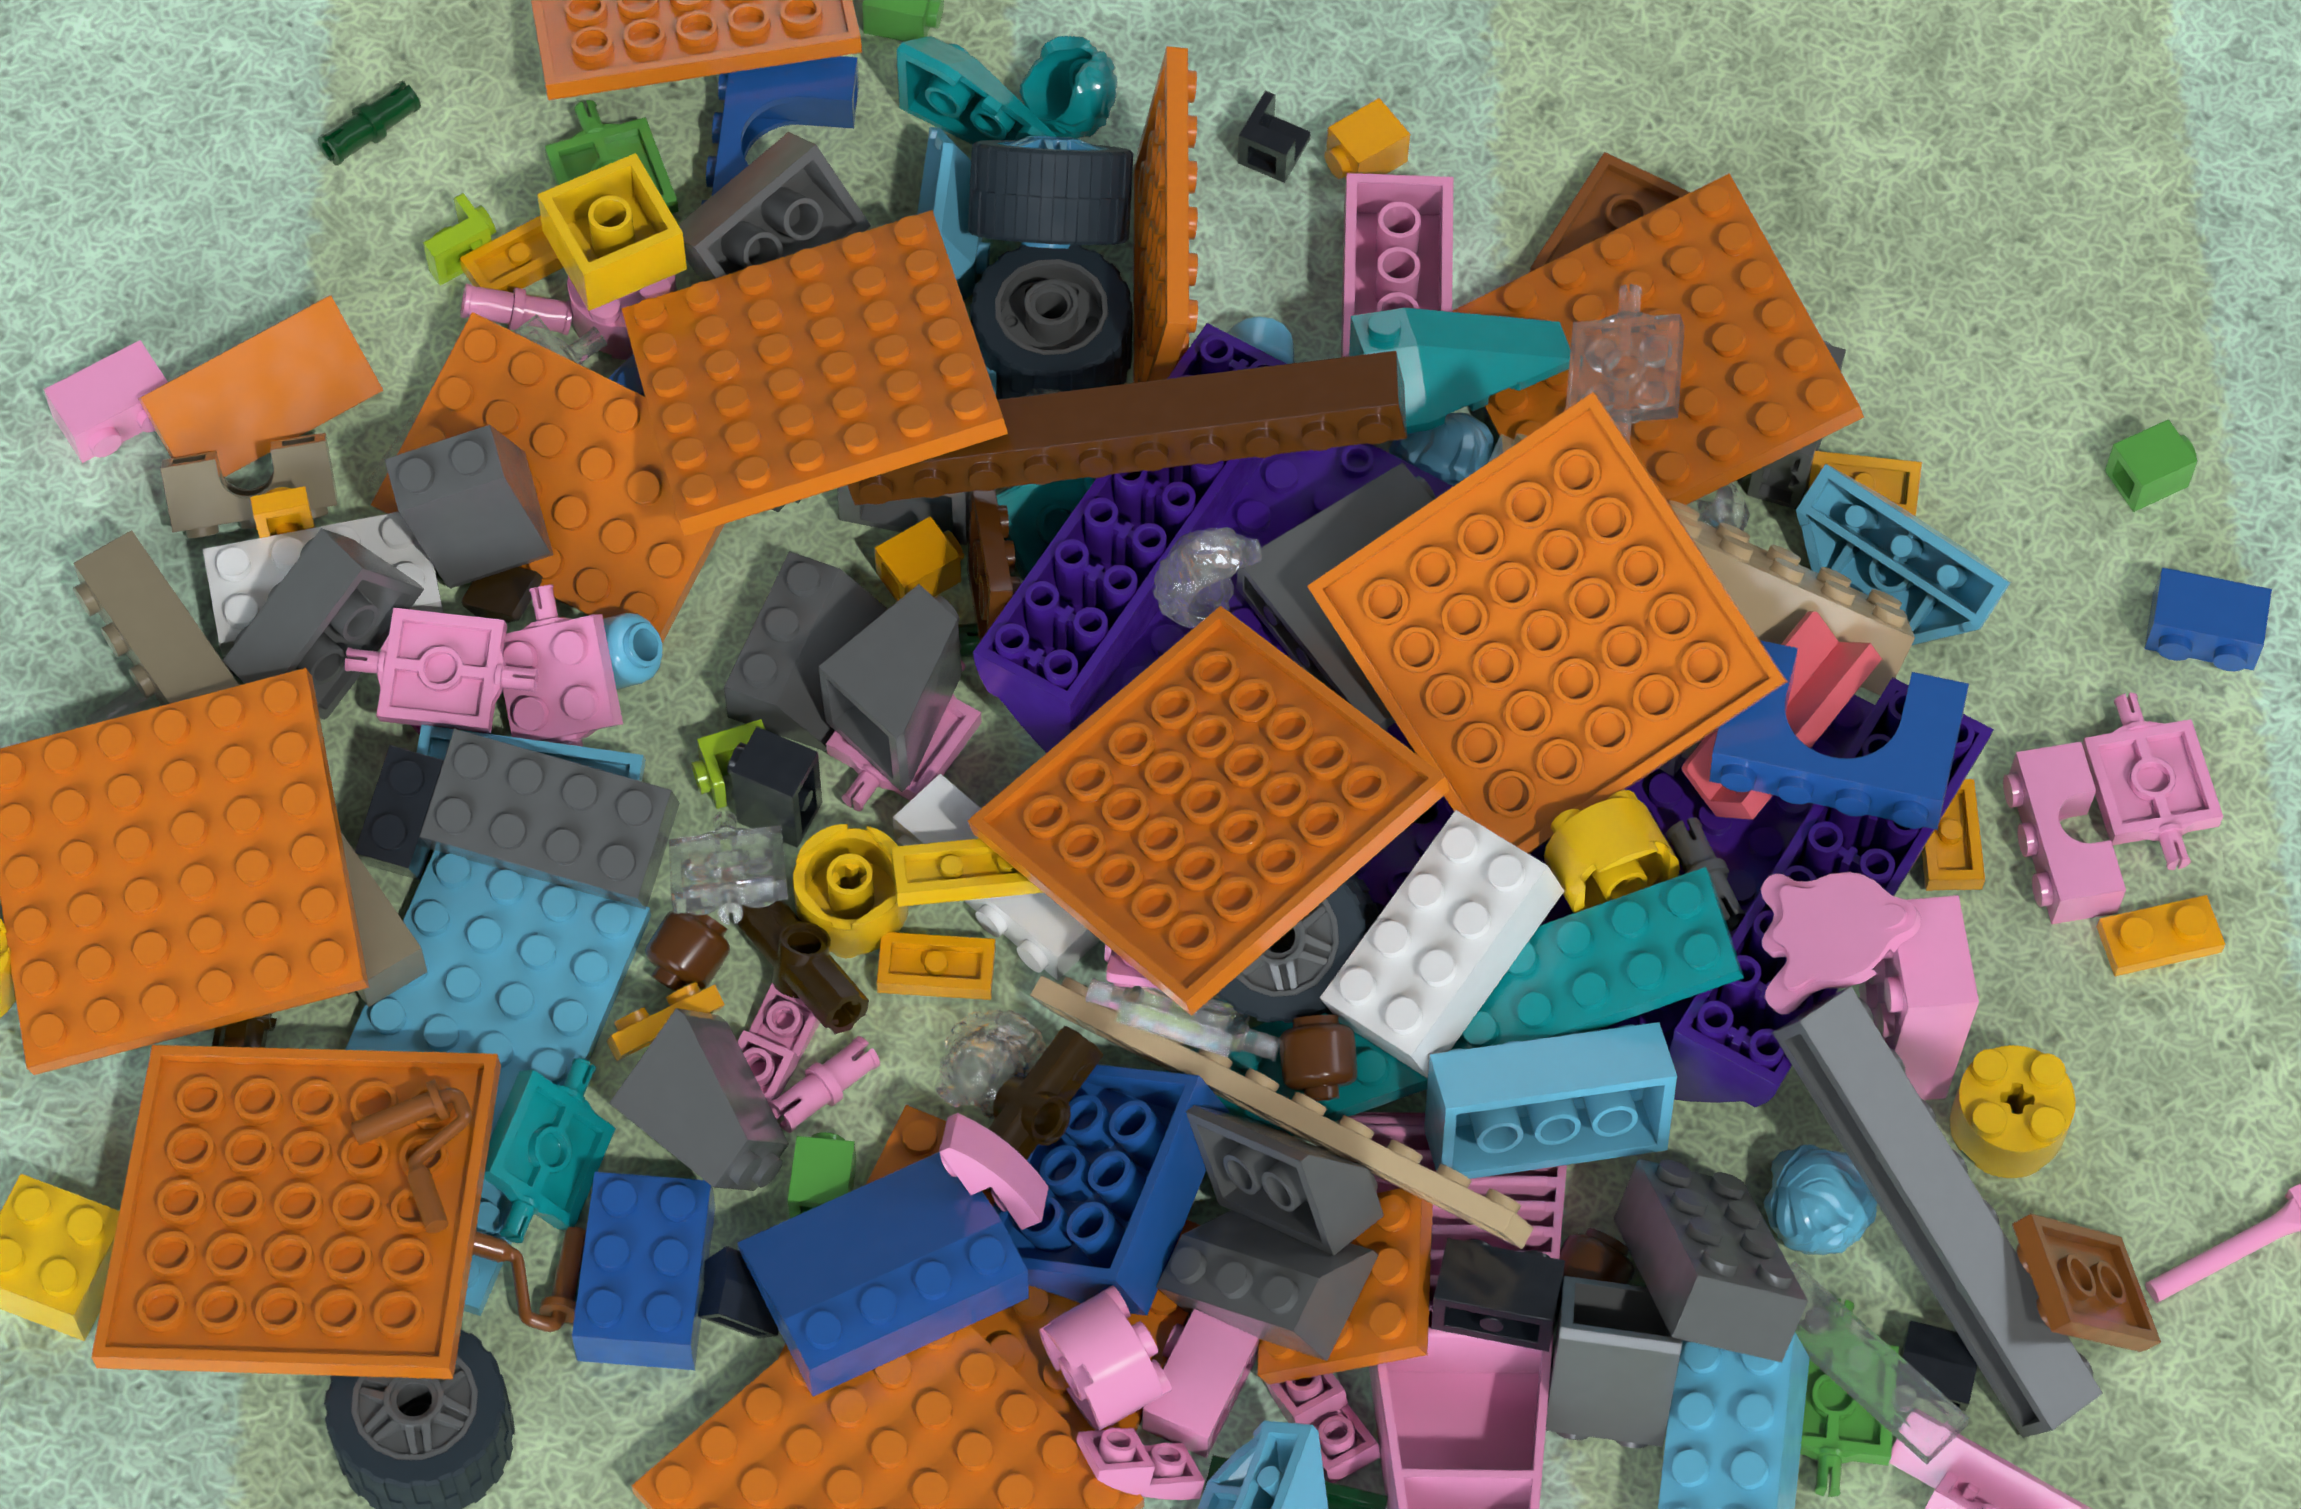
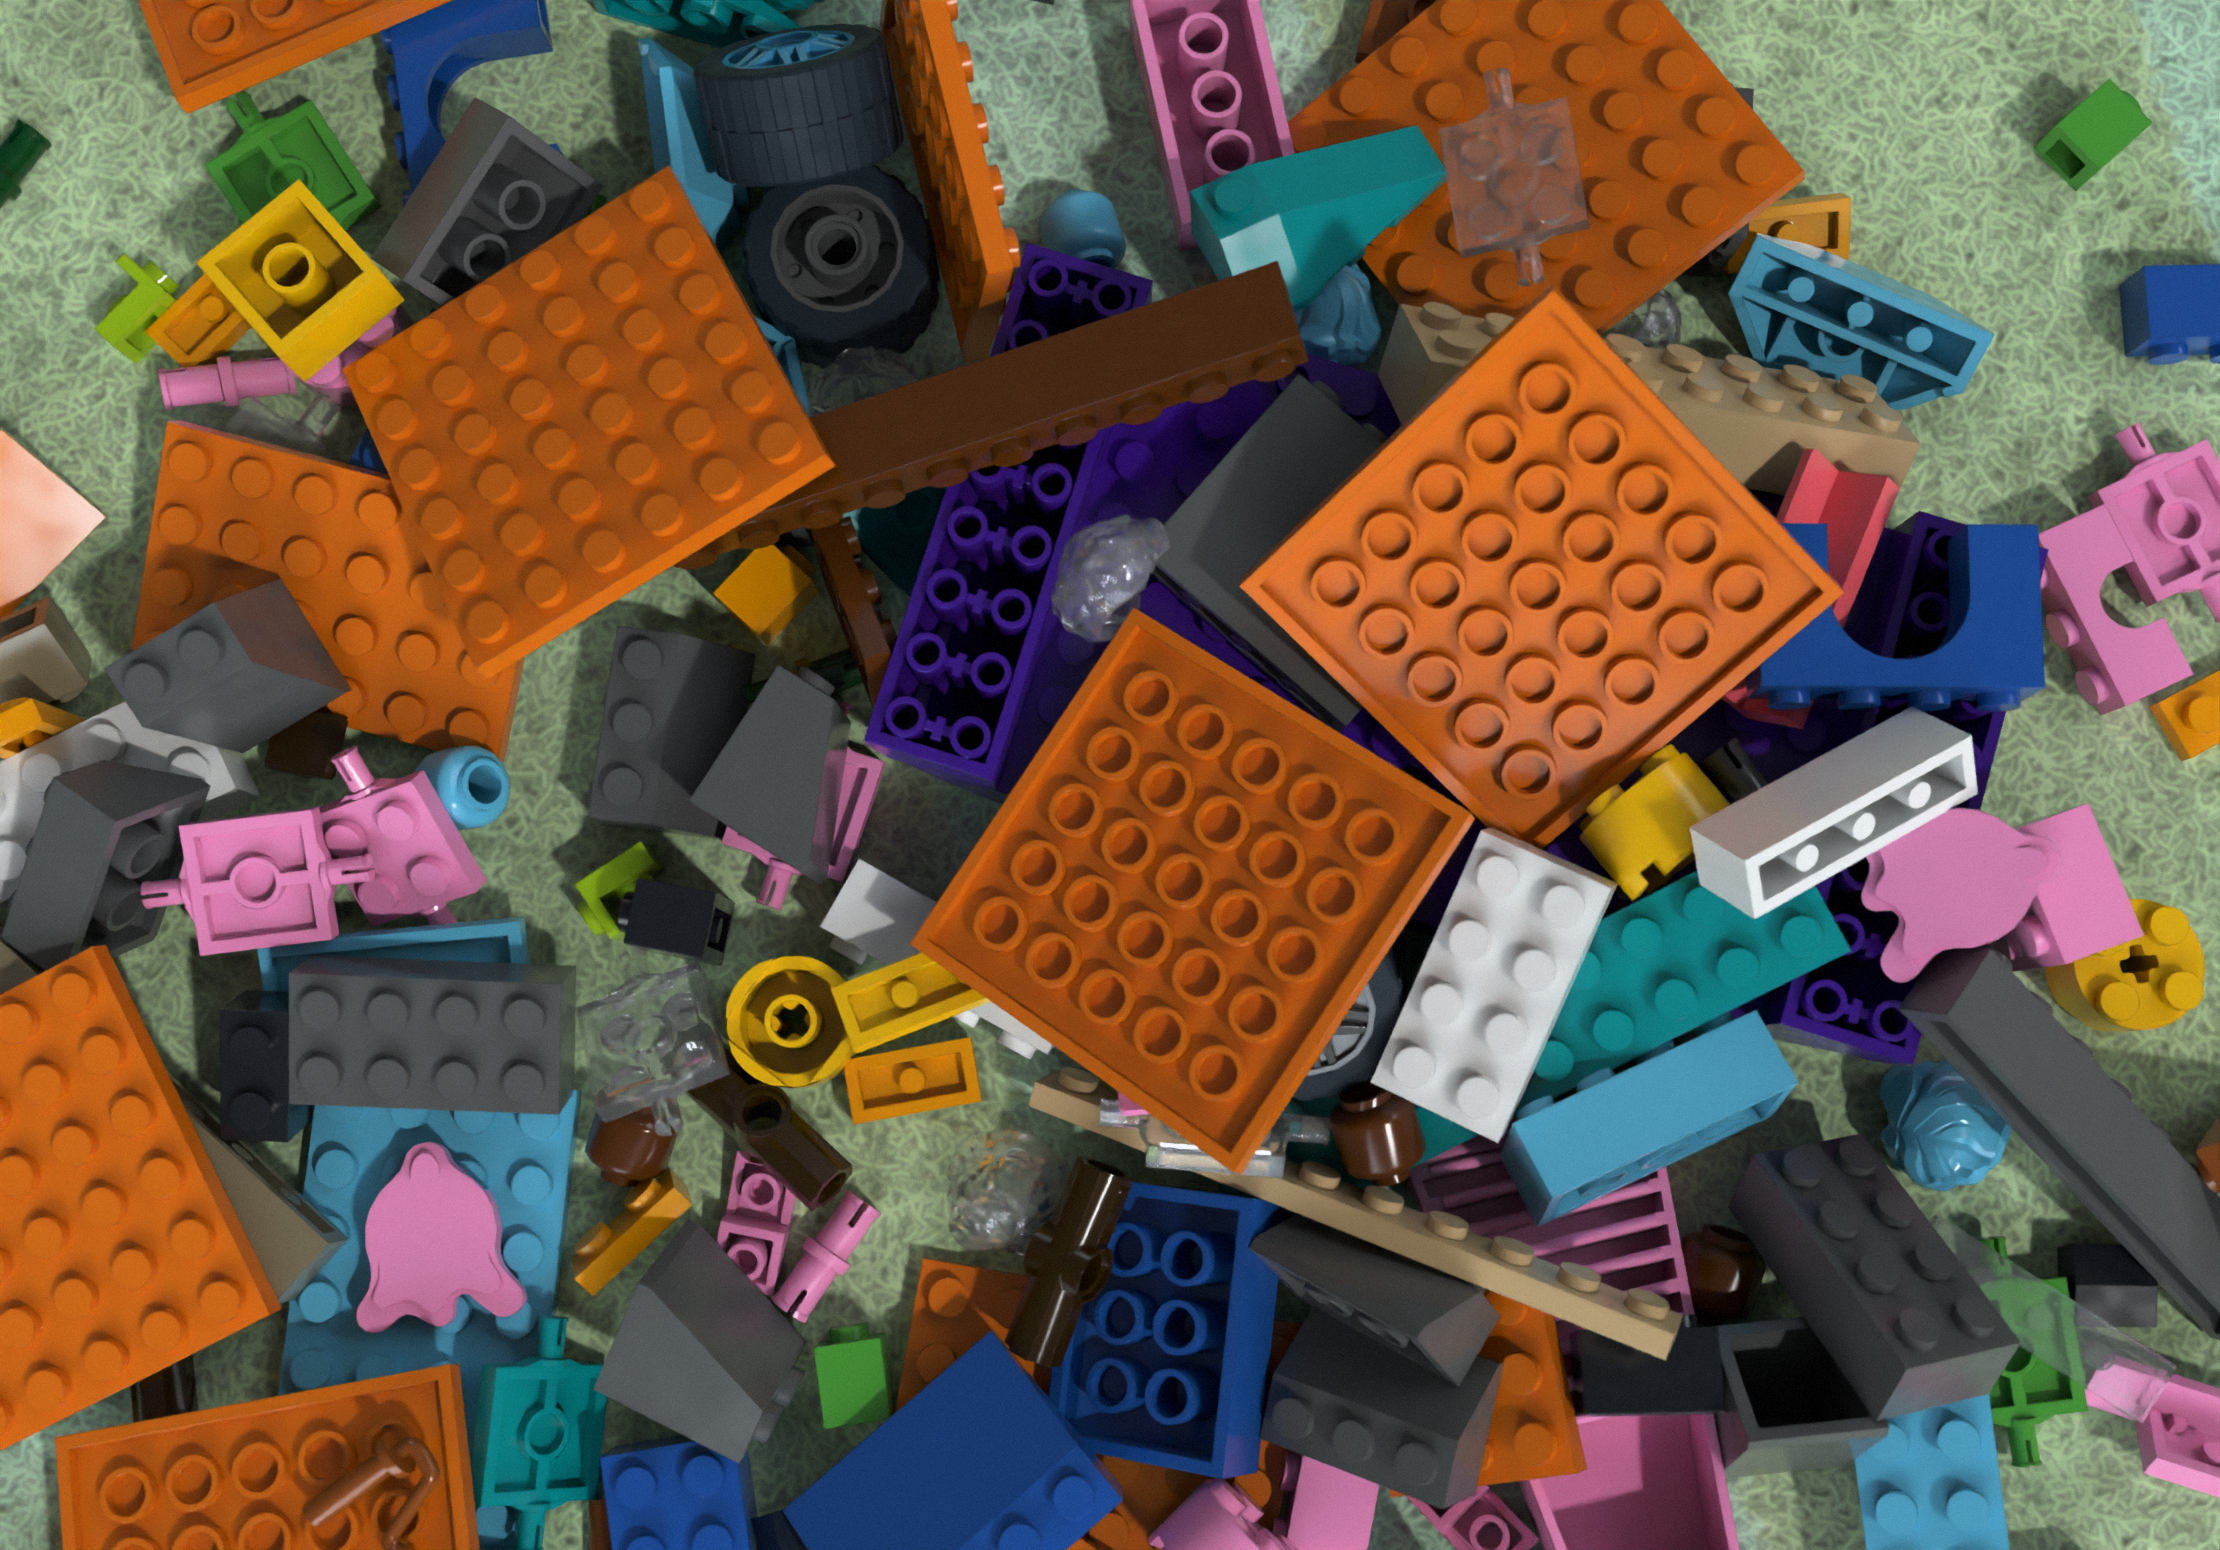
camera: 15 degrees left, 20 degrees up
(499, 986) = (431, 1242): none -> bright pink tile
(988, 1161) = (1049, 1366): bright pink slope -> none
(1745, 850) = (1834, 811): none -> white brick

